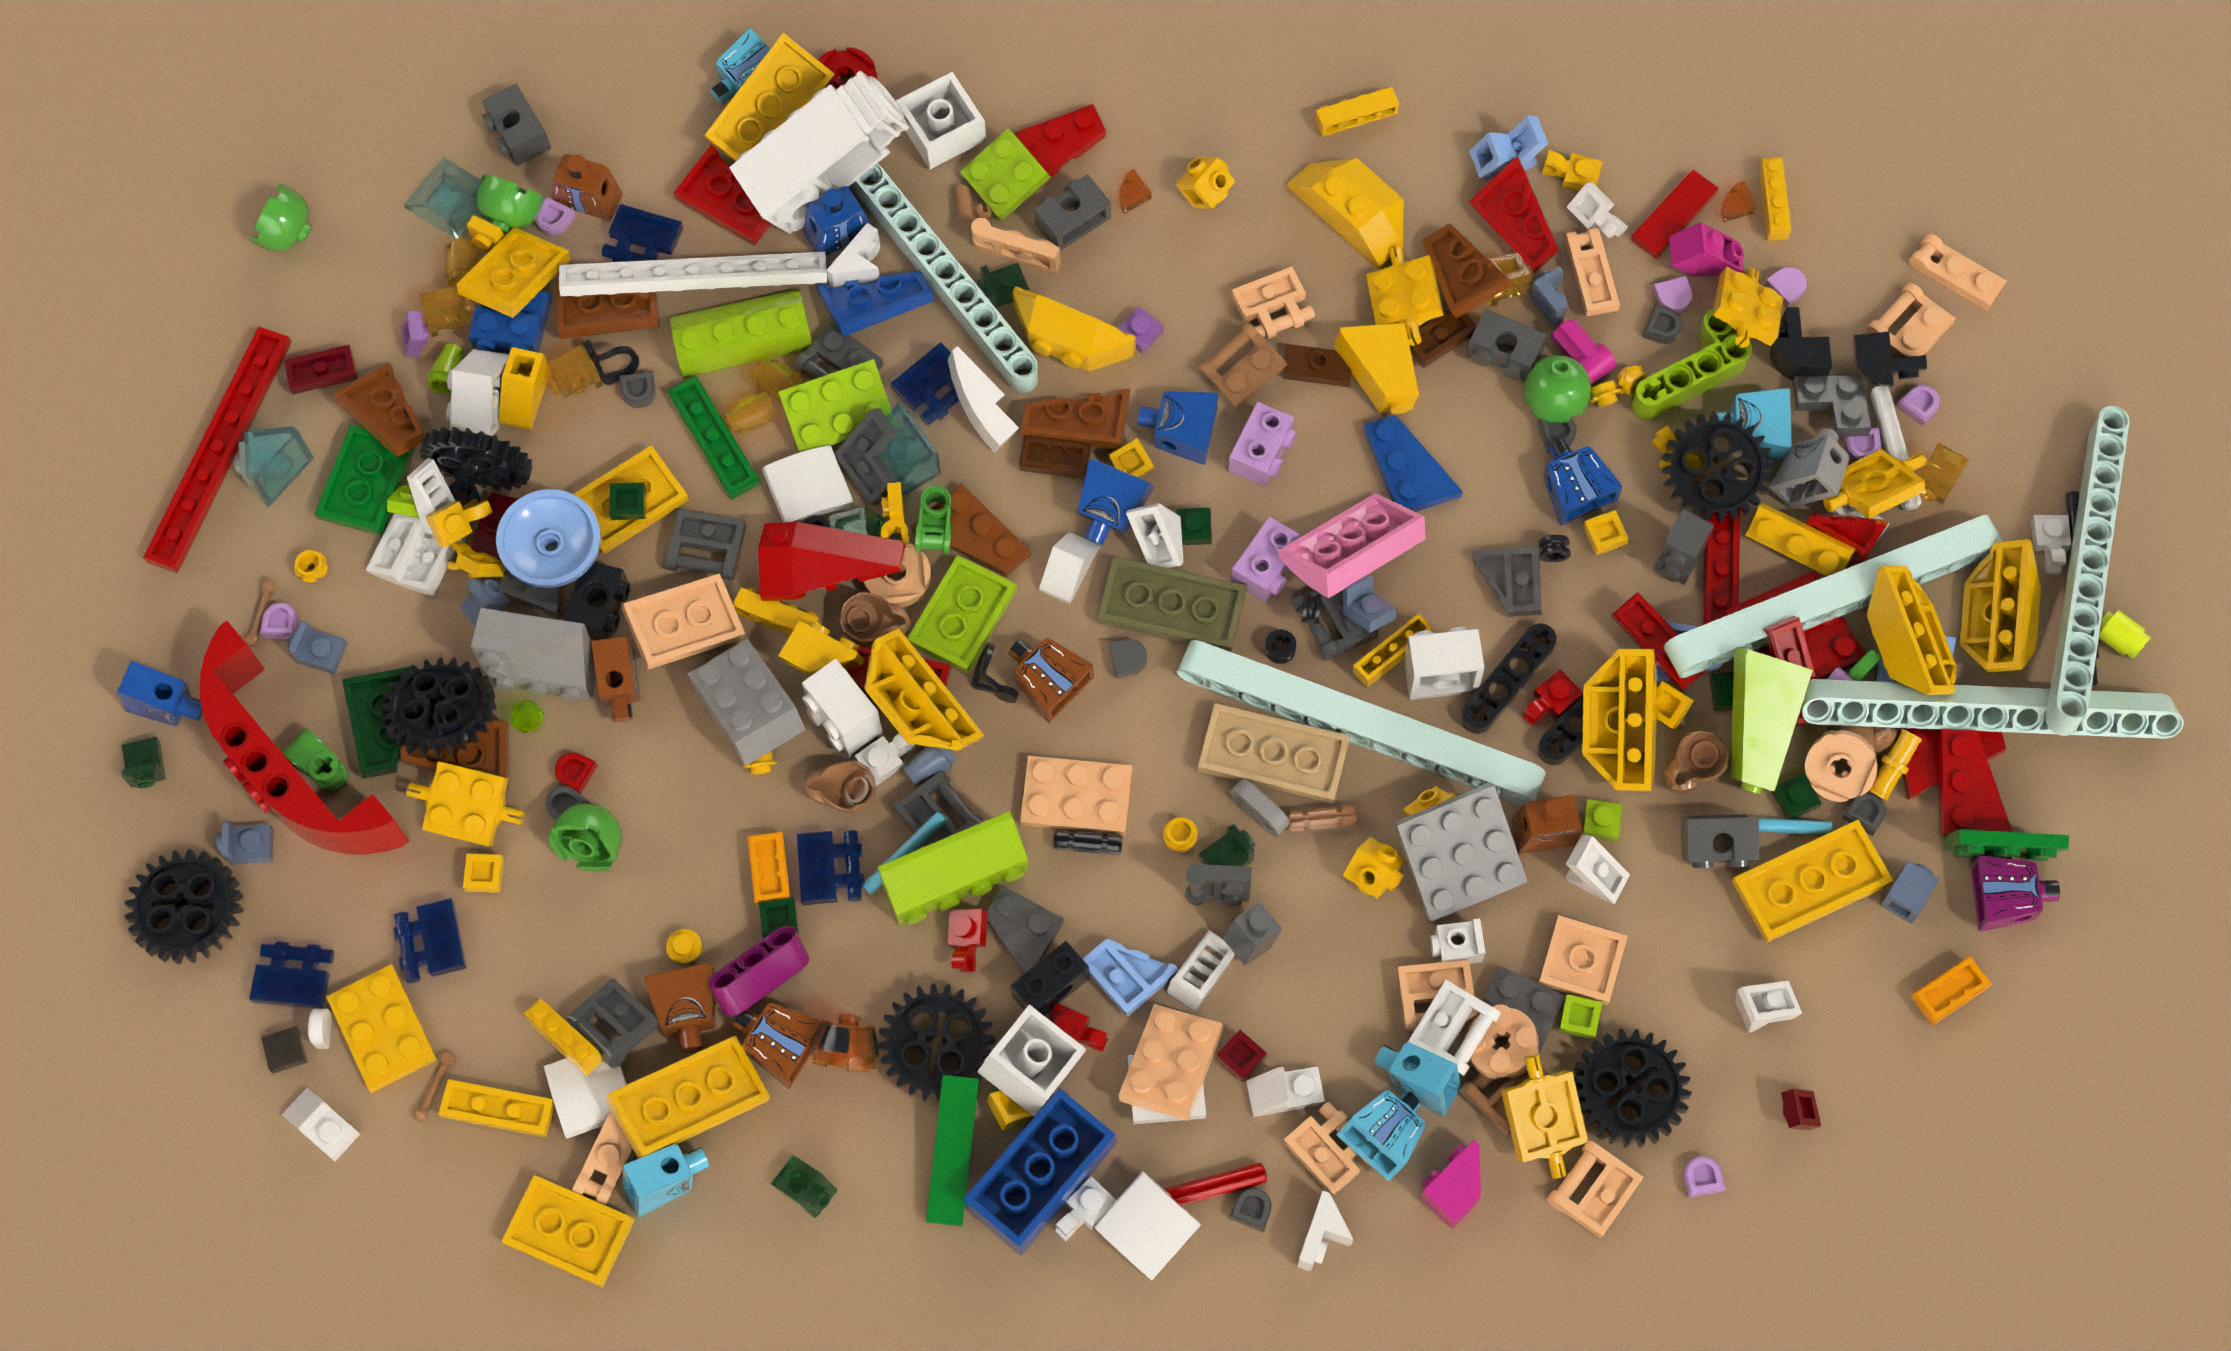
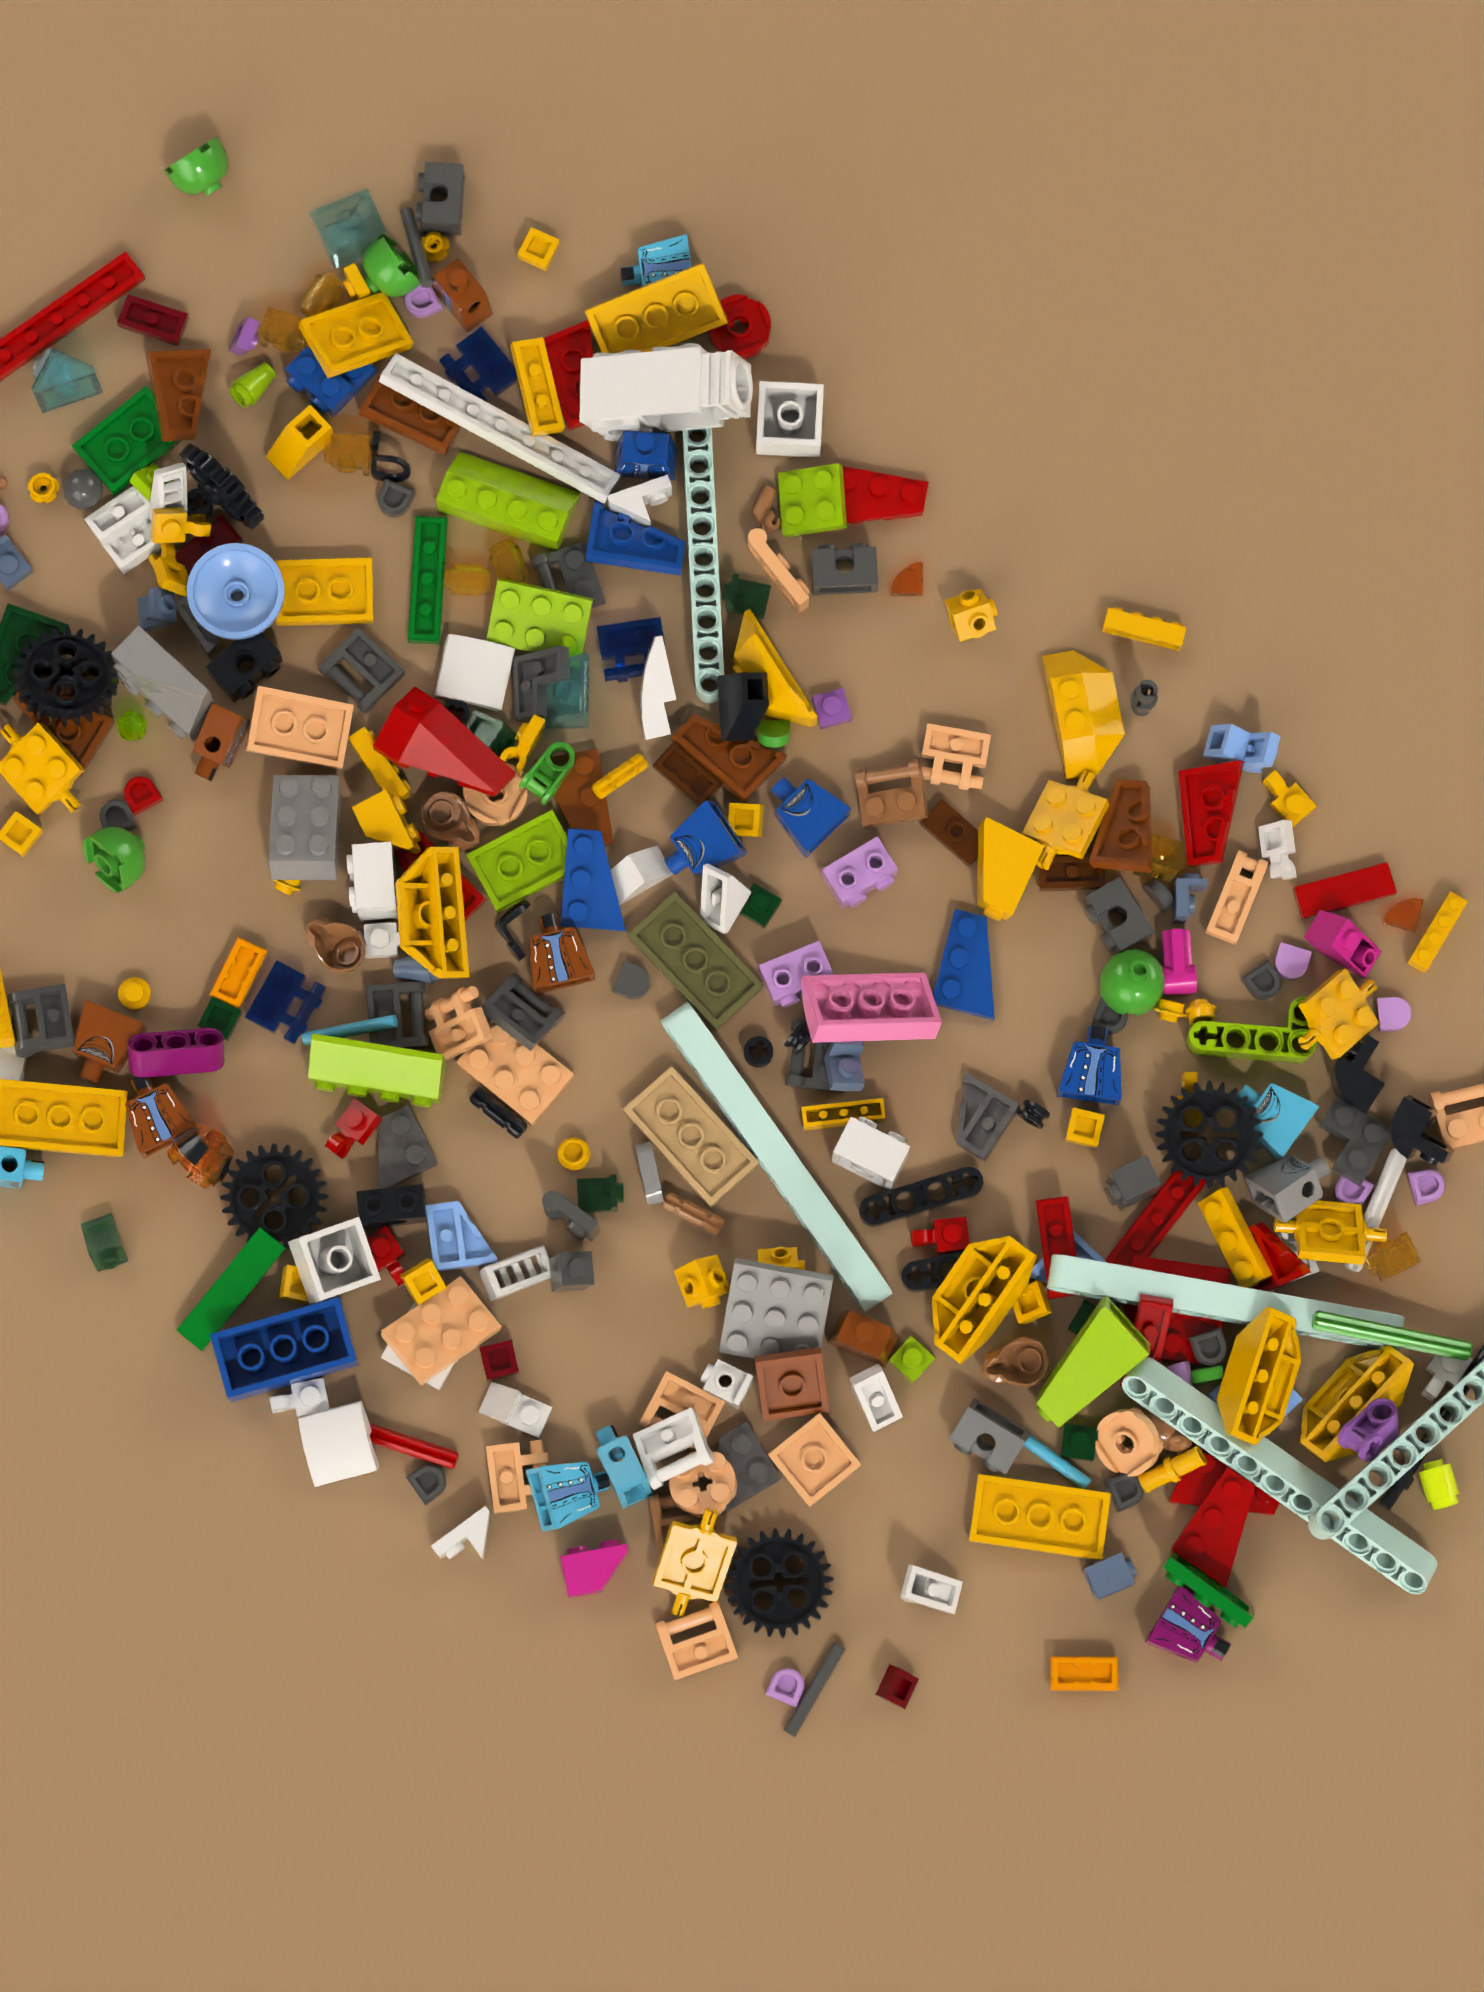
camera: 30 degrees right, 10 degrees up
(348, 543) = (82, 489): none -> dark grey piece
(476, 392) = (260, 424): white brick -> none
(520, 174) = (416, 247): none -> dark grey bar
(537, 175) = (442, 243): none -> yellow plate
(627, 501) = (320, 596): dark green plate -> none
(628, 117) = (538, 249): none -> yellow plate
(704, 220) = (537, 386): none -> yellow plate
(997, 491) = (619, 776): none -> yellow axle
(1010, 788) = (462, 1032): none -> light nougat plate
(1033, 595) = (588, 884): none -> blue wing
(1050, 741) = (517, 1017): none -> dark grey plate
(1064, 362) = (741, 704): none -> black slope
(1105, 378) = (774, 733): none -> bright green tile
(1125, 1027) = (423, 1281): none -> yellow plate
(1400, 157) = (1147, 700): none -> dark grey pin
(1517, 904) = (791, 1384): none -> dark orange plate
(1526, 307) = (1159, 894): none -> dark grey tile
(1580, 1017) = (780, 1502): lime plate -> none
(1729, 1163) = (814, 1689): none -> dark grey bar
(1848, 642) = (1209, 1347): none -> dark grey tile
(1993, 532) = (1392, 1335): none -> bright green axle
(2040, 614) = (1372, 1429): none -> medium lavender piece

